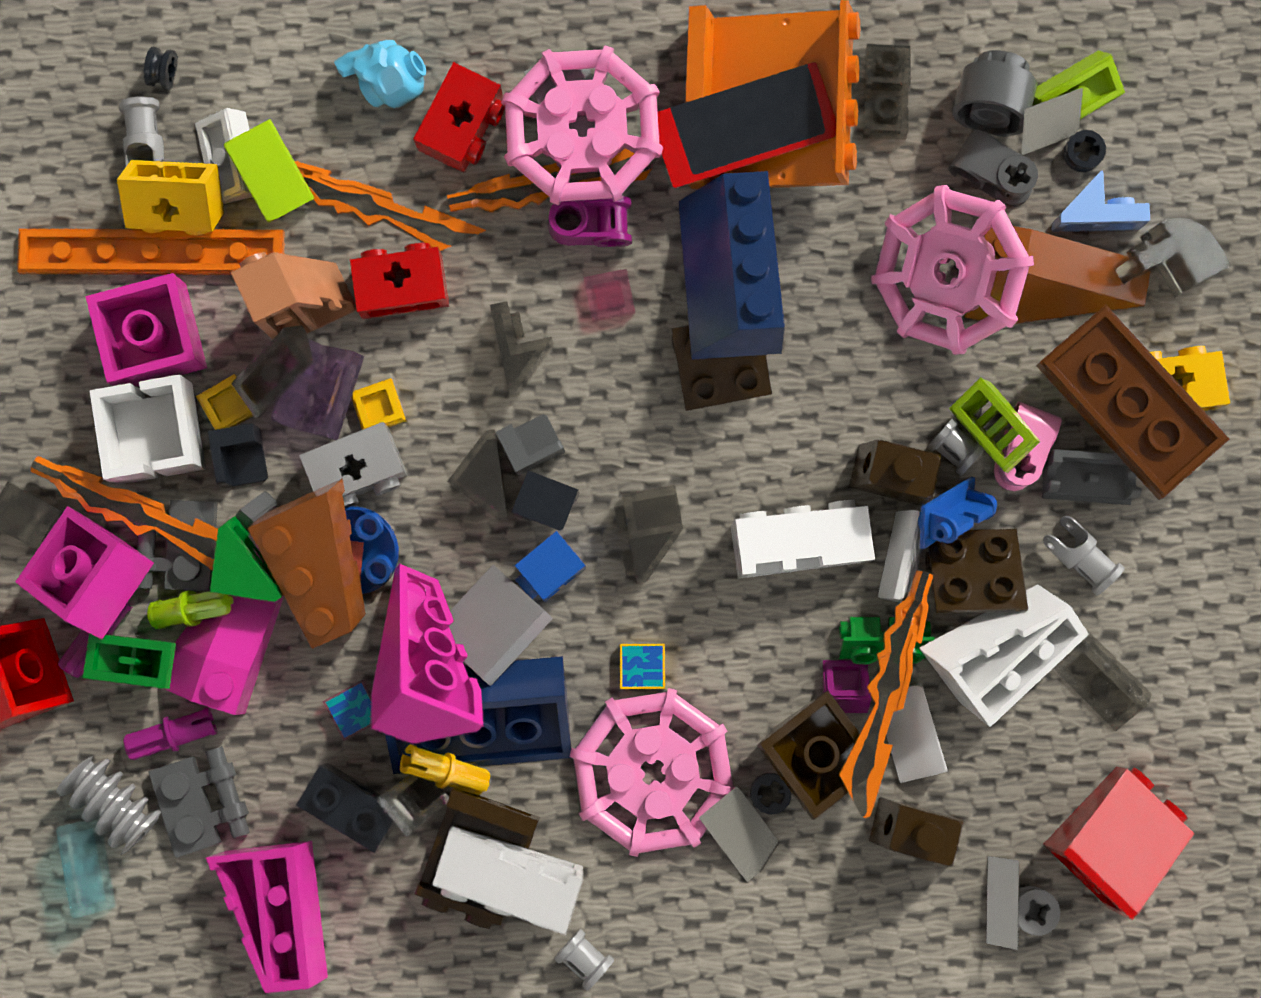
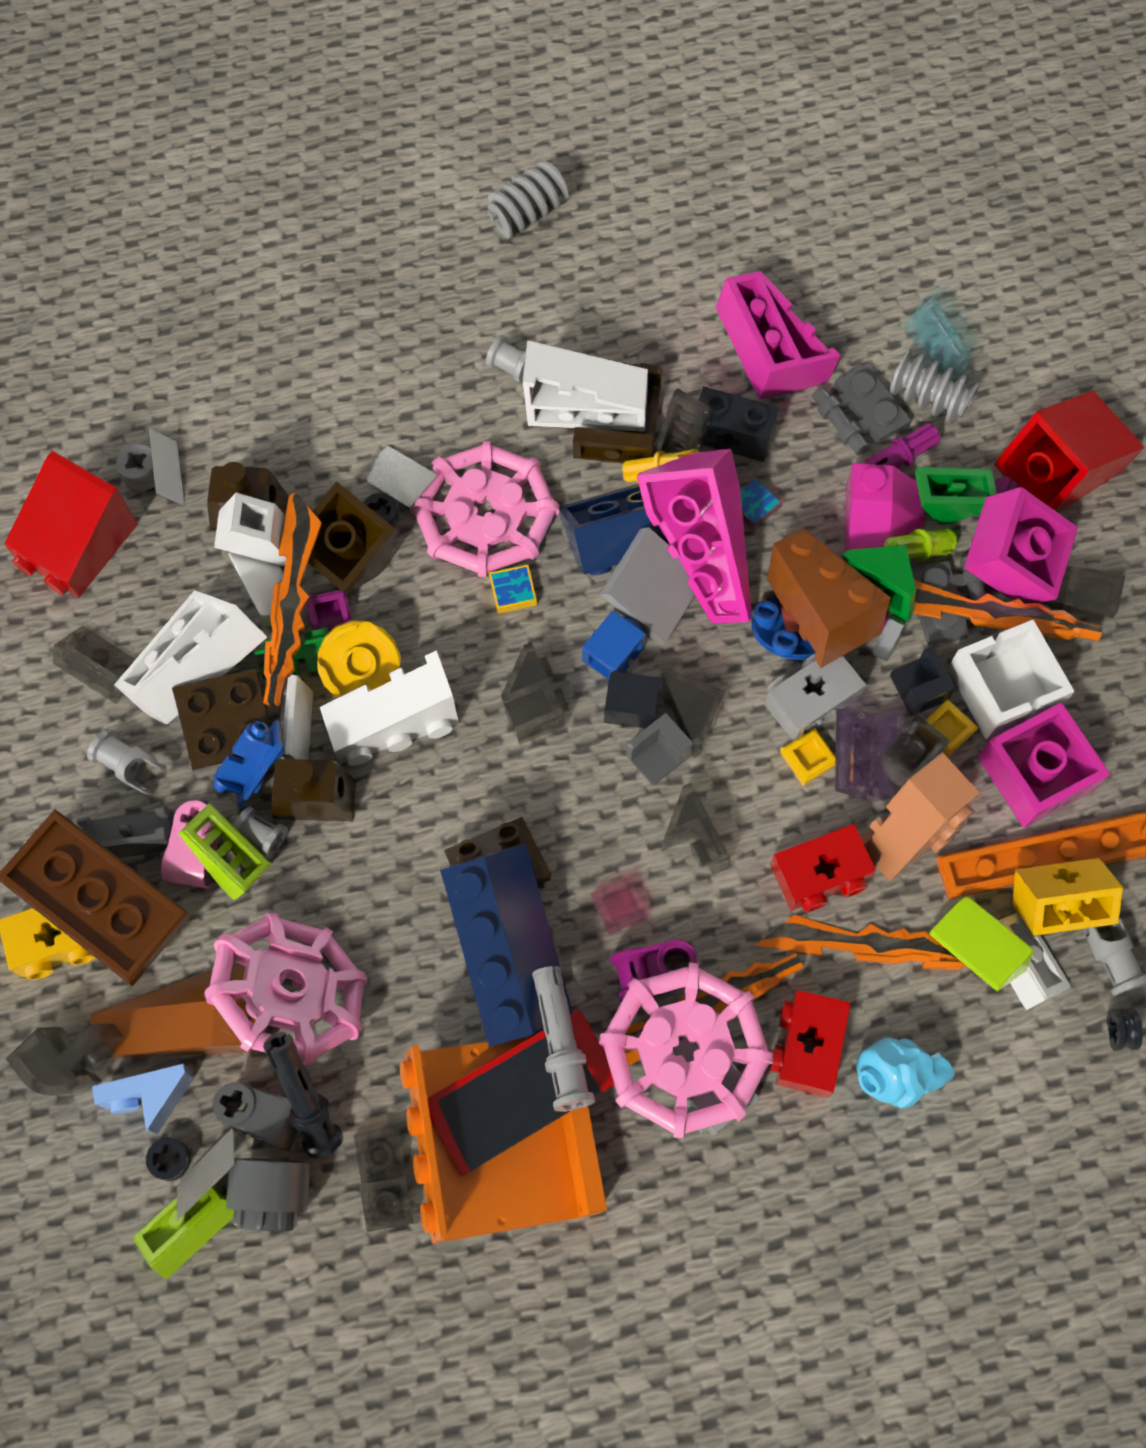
camera: 170 degrees right, 15 degrees down
(699, 135) = (564, 1059): none -> light grey pin
(824, 609) = (357, 656): none -> yellow tile
(920, 784) = (251, 529): none -> white slope
(949, 154) = (308, 1109): none -> black pin

